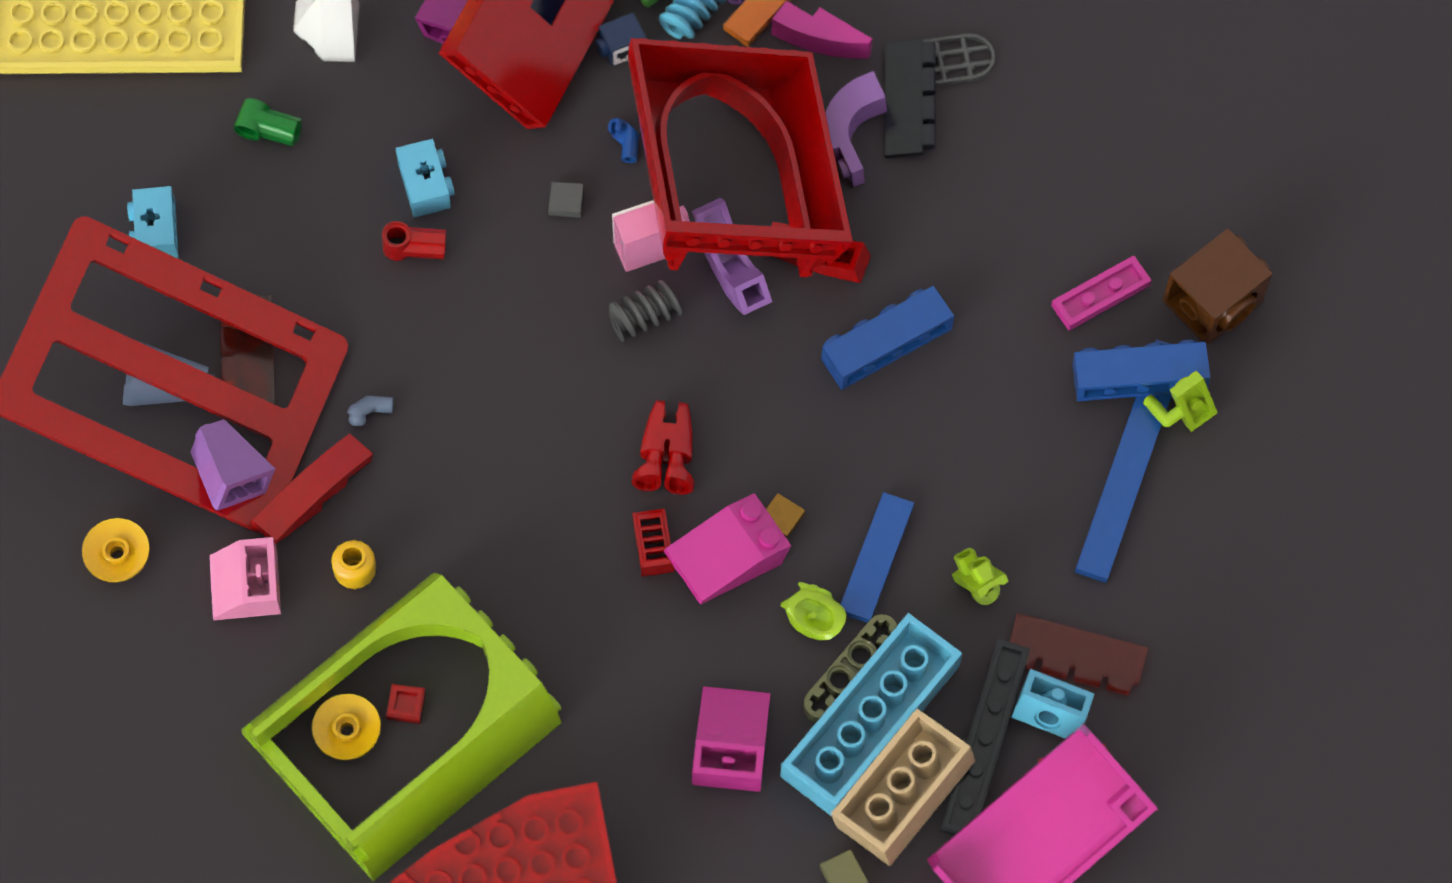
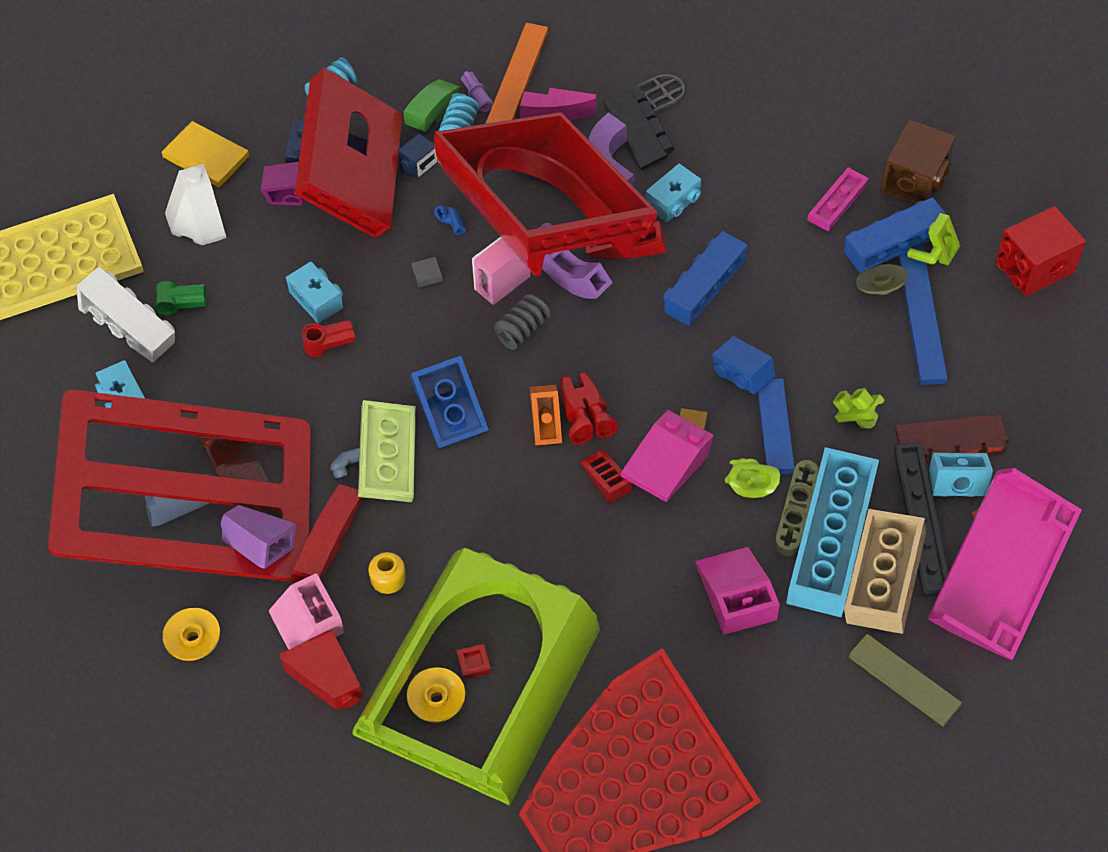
camera: 20 degrees left, 10 degrees down
(195, 126) = (124, 314): none -> white wedge
(241, 650) = (324, 670): none -> red slope
(419, 414) = (387, 451): none -> yellowish green tile
(515, 381) = (449, 402): none -> blue slope
(617, 439) = (545, 414): none -> orange slope
(873, 469) = (743, 365): none -> blue brick
(904, 208) = (674, 192): none -> medium azure brick
(1095, 421) = (882, 279): none -> olive dish
(1302, 461) = (1040, 251): none -> red brick

